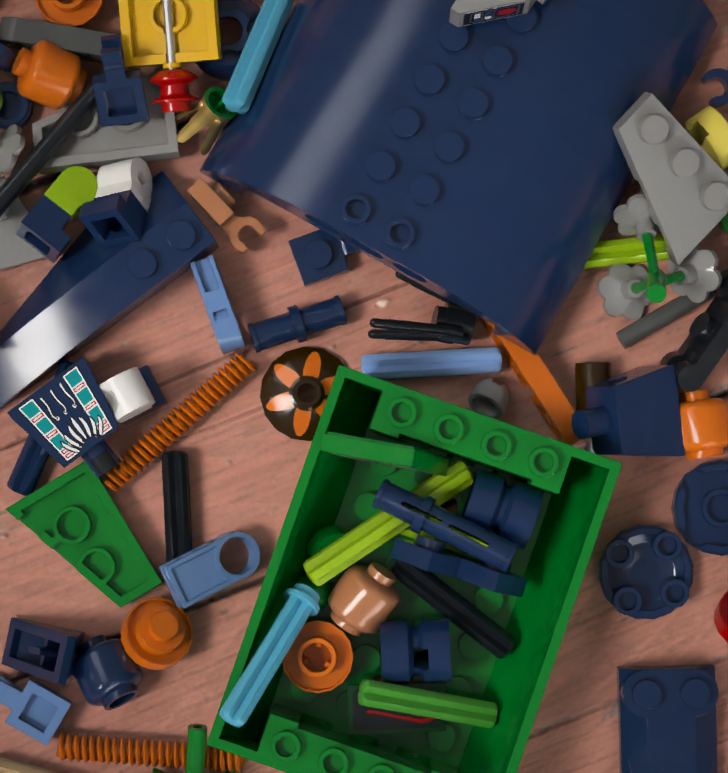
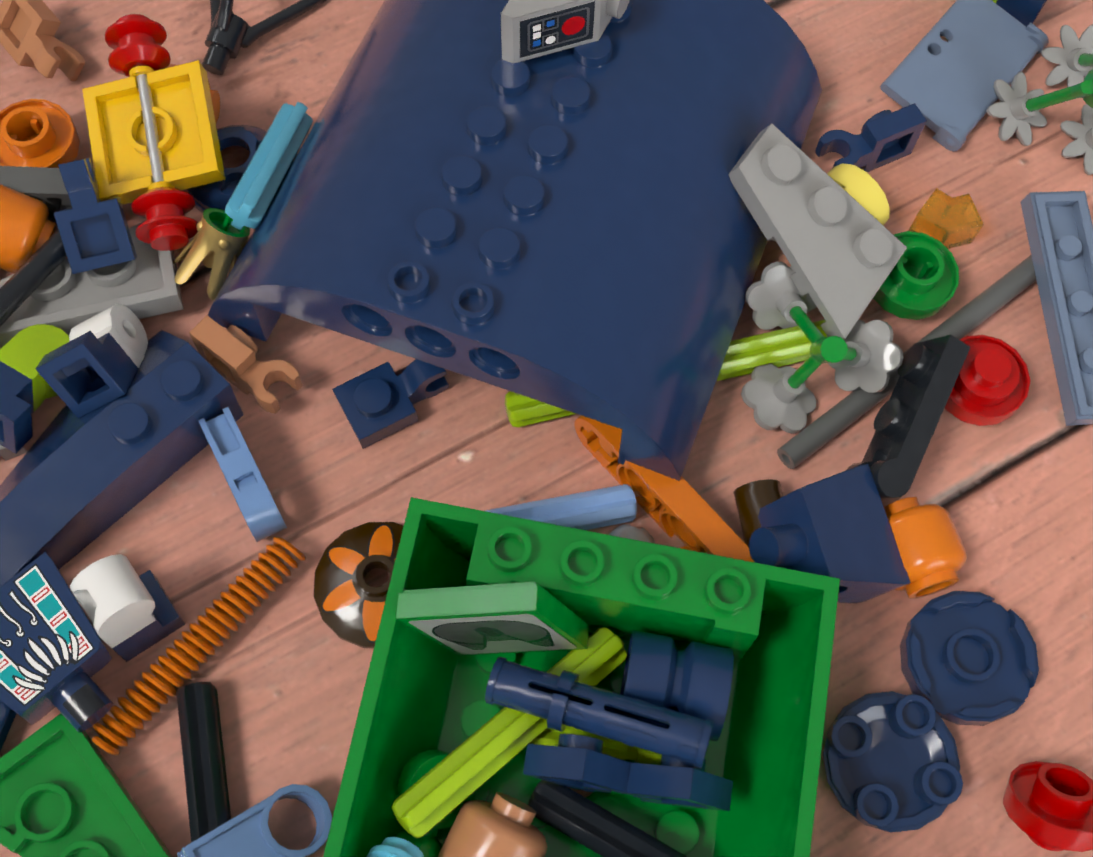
camera: 10 degrees left, 20 degrees down
(297, 323) = (354, 490): dark blue pin -> none
(448, 323) = (561, 458): black plant -> none

